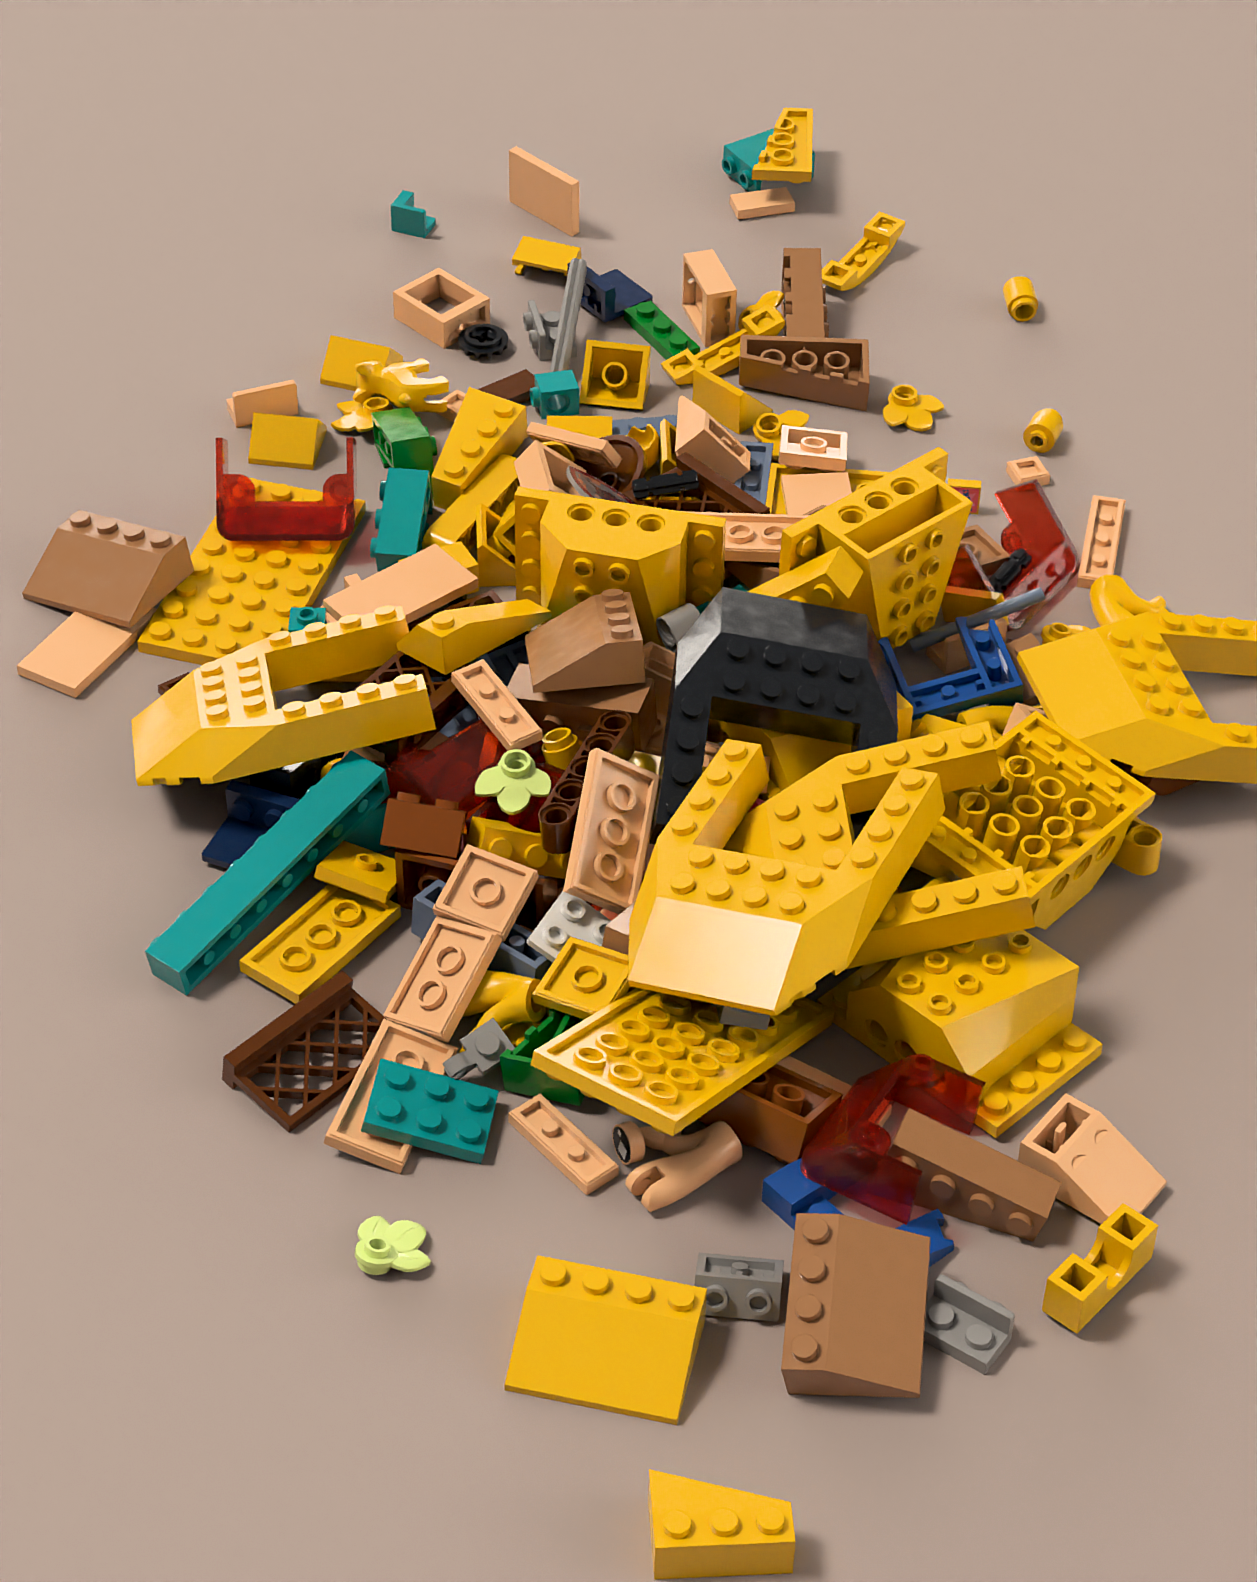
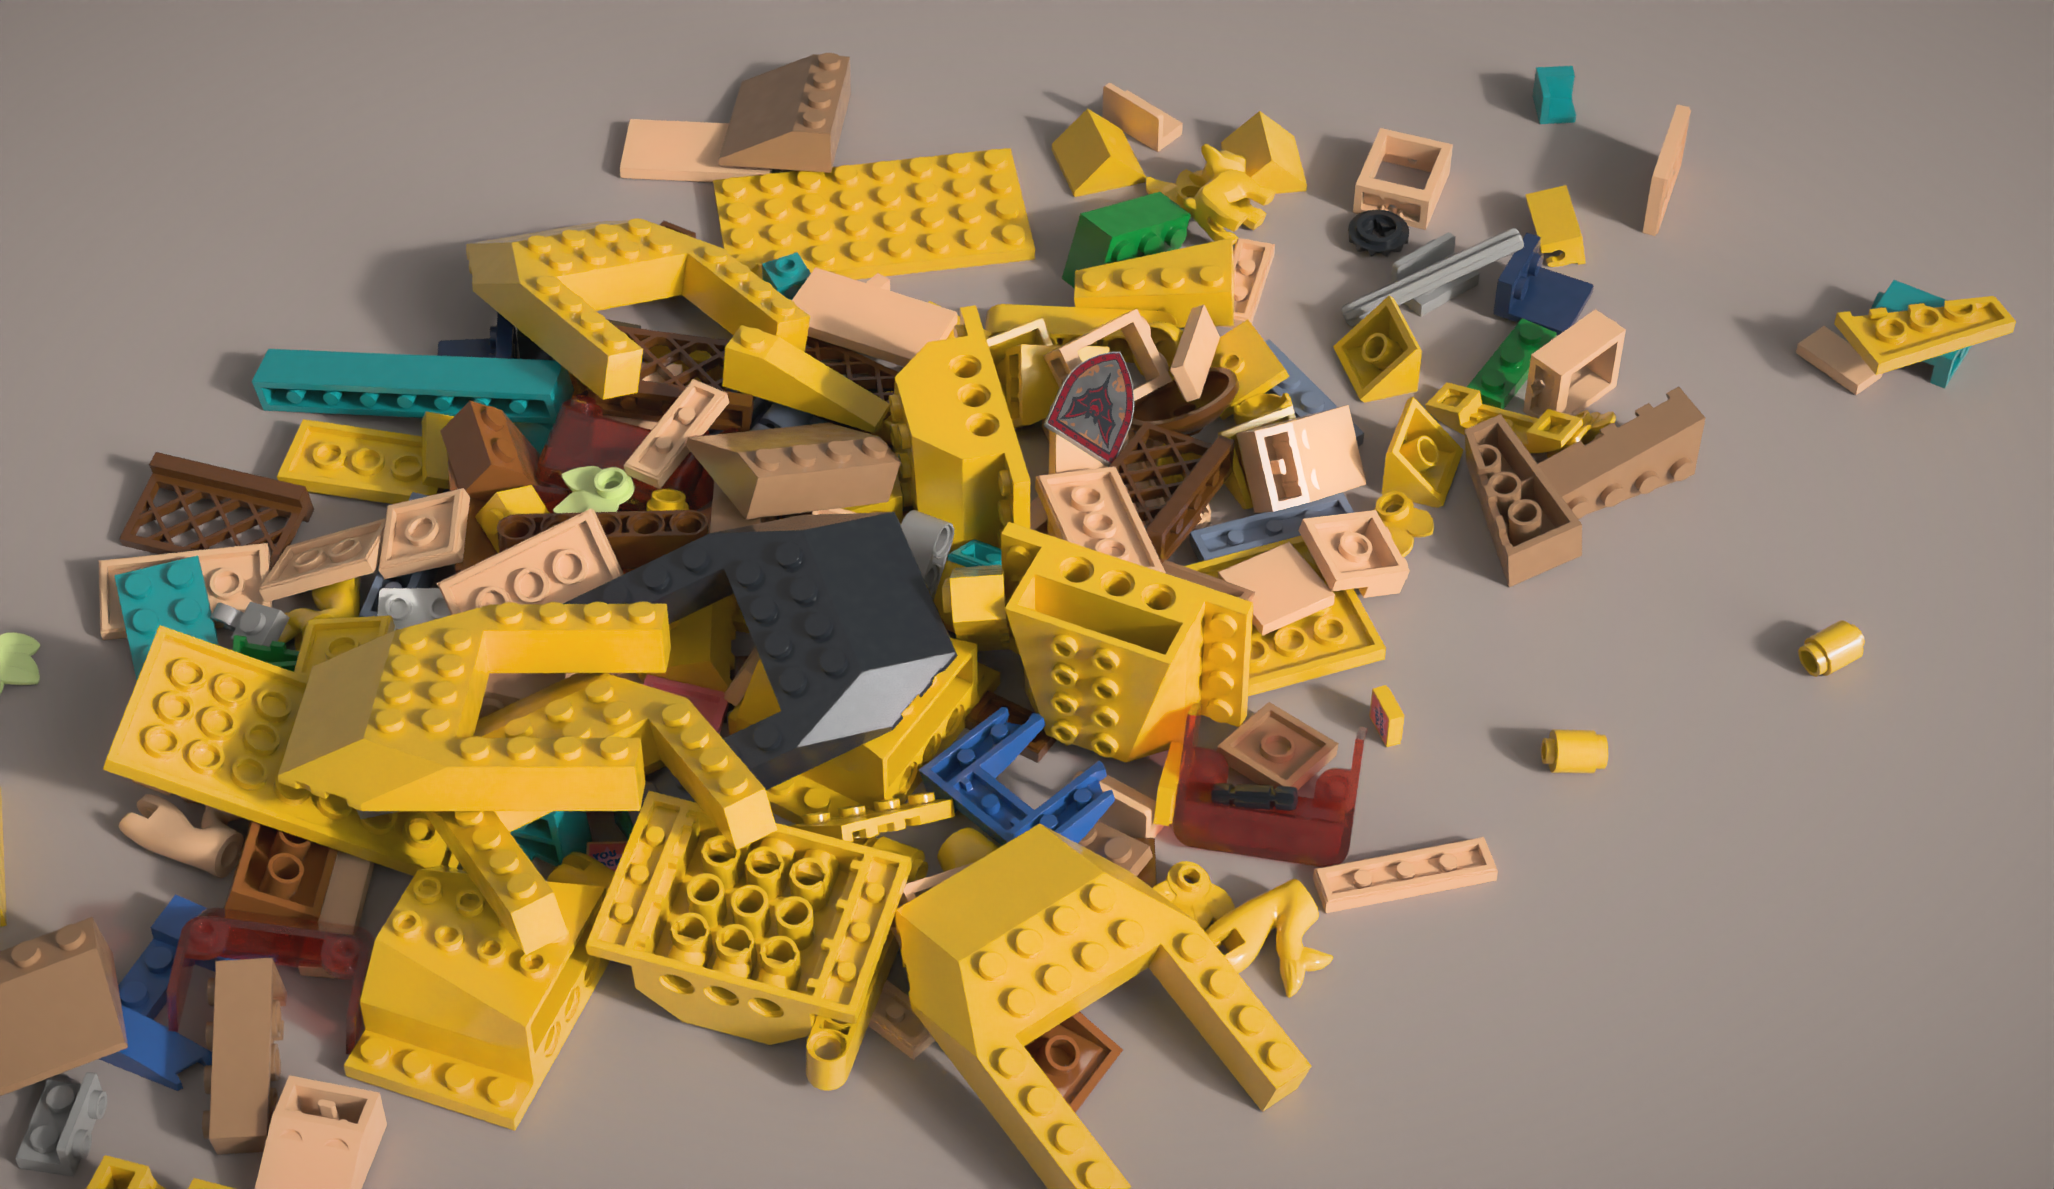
camera: 65 degrees right, 5 degrees up
(245, 519) = (931, 178): clear red windscreen -> none
(402, 517) = (1010, 274): teal wedge -> none
(513, 388) = (1306, 286): reddish brown tile -> none
(555, 394) = (1318, 319): teal brick -> none
(665, 484) = (1167, 444): black axle -> none
(740, 1286) = (41, 909): light grey bracket -> none
(867, 255) = (1792, 483): yellow slope -> none
(910, 408) = (1531, 620): yellow plate -> none
(979, 618) = (1137, 791): sand blue bar -> none
(1027, 470) = (1491, 766): light nougat tile -> none

